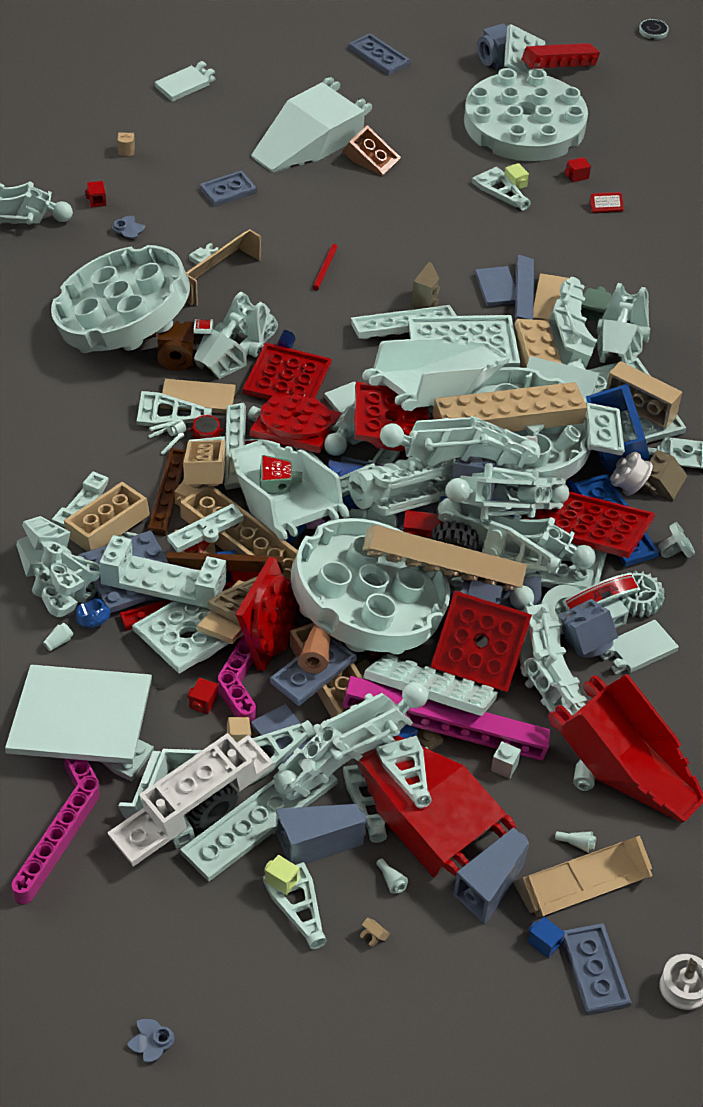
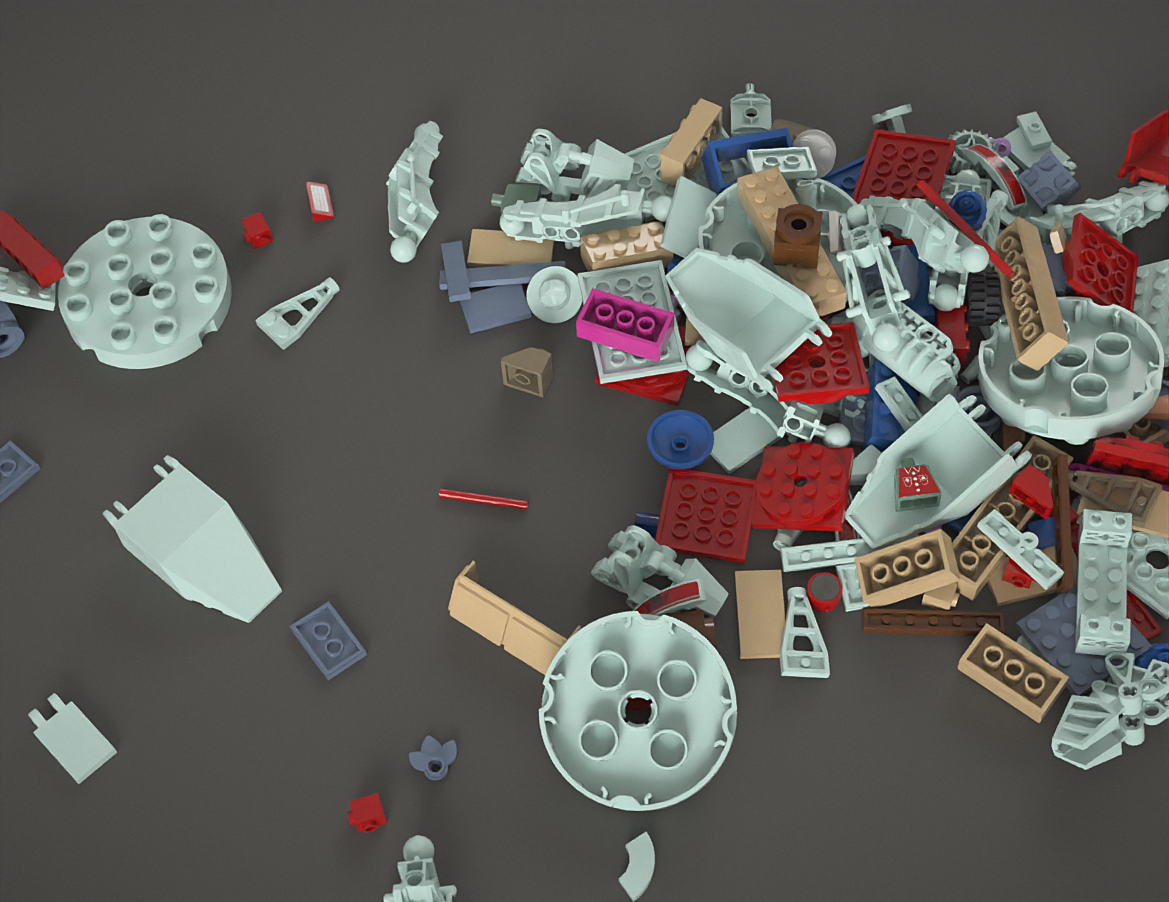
camera: 90 degrees left, 10 degrees up
(18, 311) = (640, 866): none -> light aqua tile
(92, 489) = (984, 716): light aqua slope -> none
(126, 144) = (243, 792): tan piece -> none
(174, 428) = (831, 628): light aqua plant -> none
(201, 254) = (482, 651): light aqua plate -> none
(256, 542) = (1033, 490): none -> red slope
(350, 361) = (680, 429): none -> blue dish
(371, 152) = (238, 466): nougat slope -> none
(393, 322) = (586, 398): light aqua plate -> none
(451, 318) = (625, 324): none -> dark pink brick
(493, 387) = (797, 236): none -> reddish brown piece
(503, 510) = (965, 228): none -> red tile
(505, 306) = (554, 294): none -> light aqua hat
(506, 596) = (1058, 238): none -> tan tile
(517, 175) = (277, 293): yellowish green brick -> none
(528, 262) = (455, 271): none -> sand blue tile
(529, 522) = (971, 212): none -> blue hair
(608, 237) = (409, 193): none -> light aqua piece
(646, 616) = (1002, 146): none -> lavender plate
(663, 644) = (1034, 130): none -> light aqua plate

